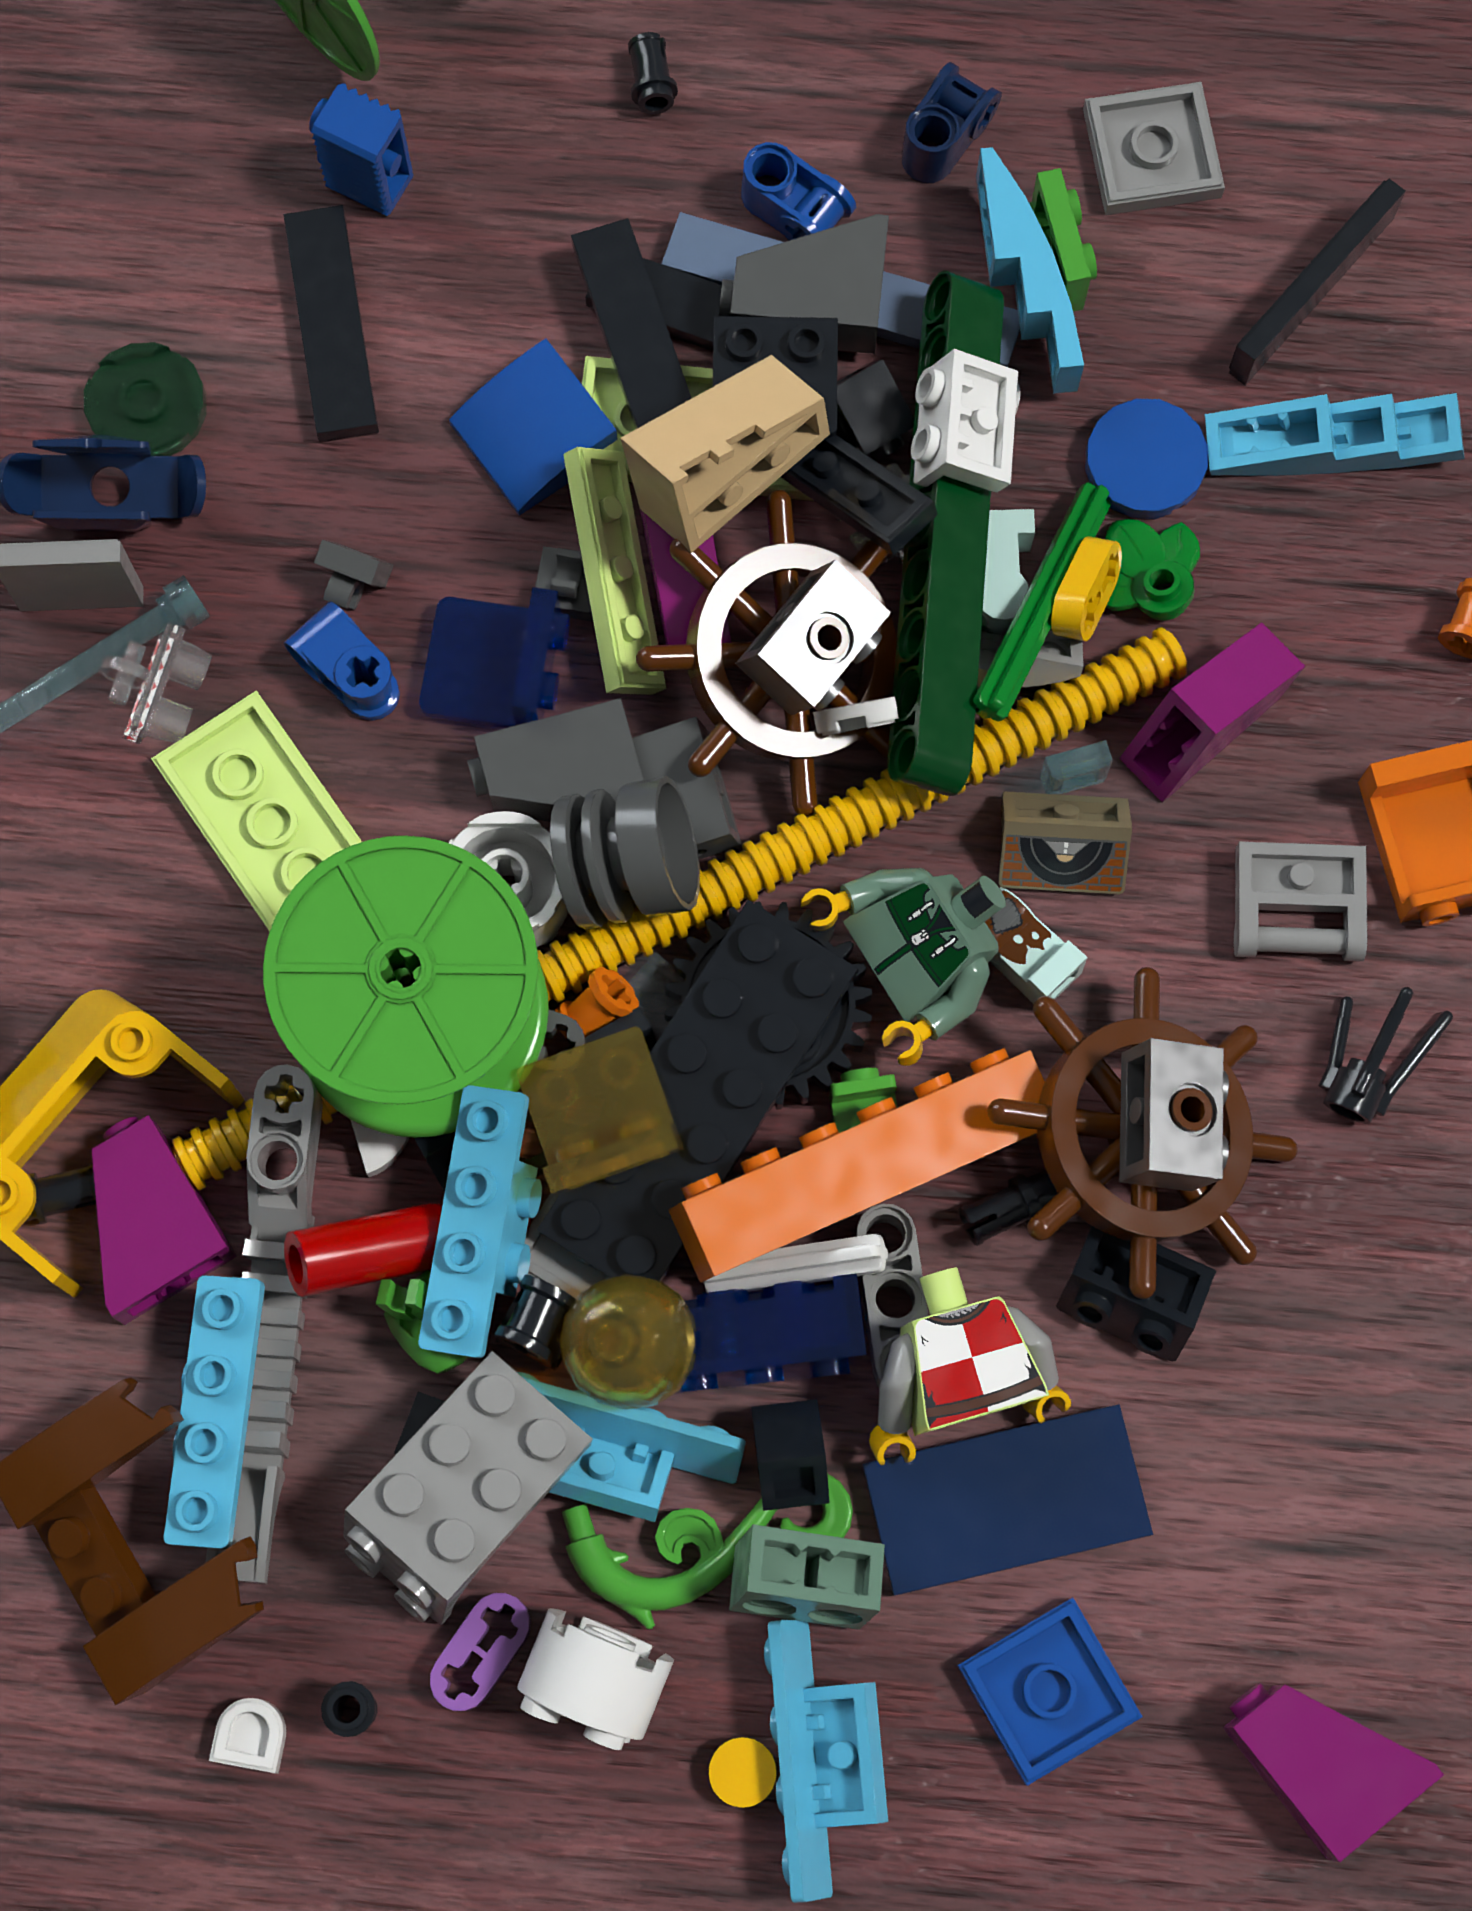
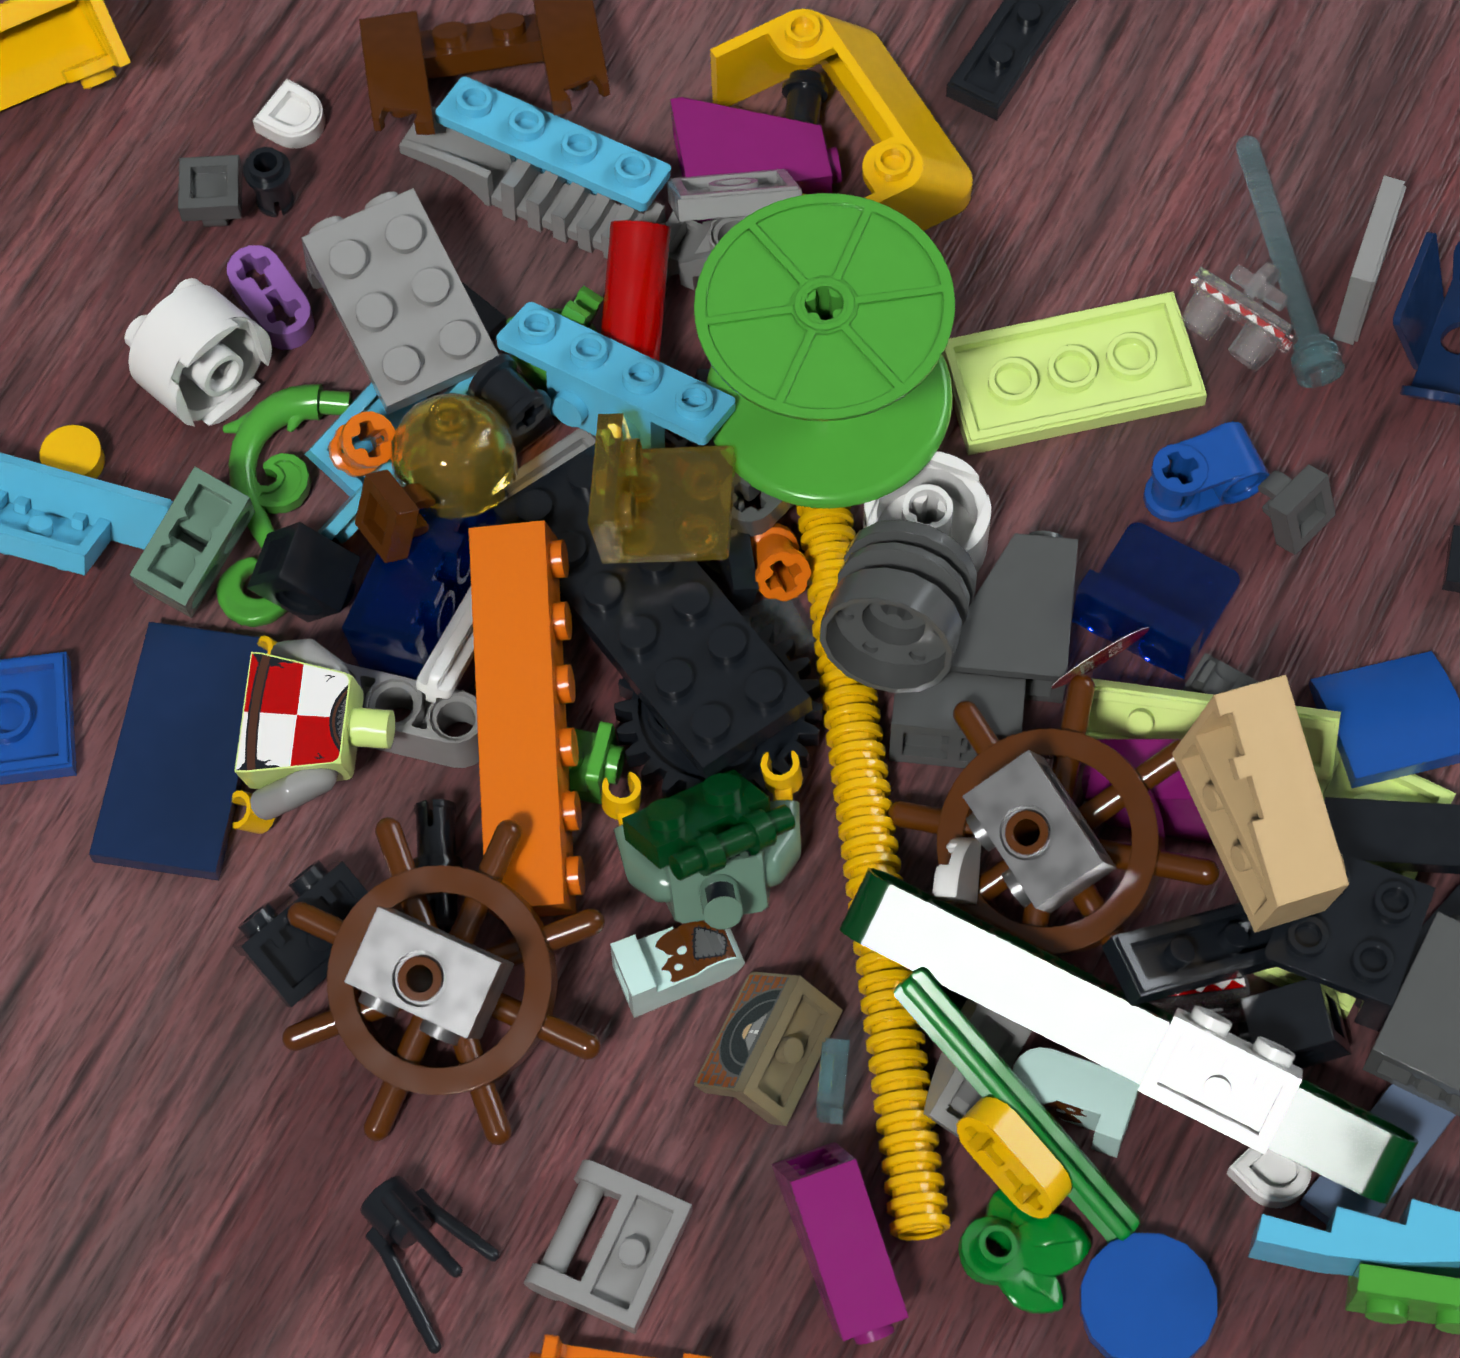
camera: 115 degrees right, 10 degrees down
(231, 1180) = (729, 193): none -> light grey tile
(385, 1768) = (210, 189): none -> dark grey tile
(604, 660) = (1101, 657): none -> red sticker
(637, 1451) = (367, 427): none -> orange bush
(729, 1359) = (391, 514): none -> reddish brown tile
(903, 955) = (707, 825): none -> dark green plate

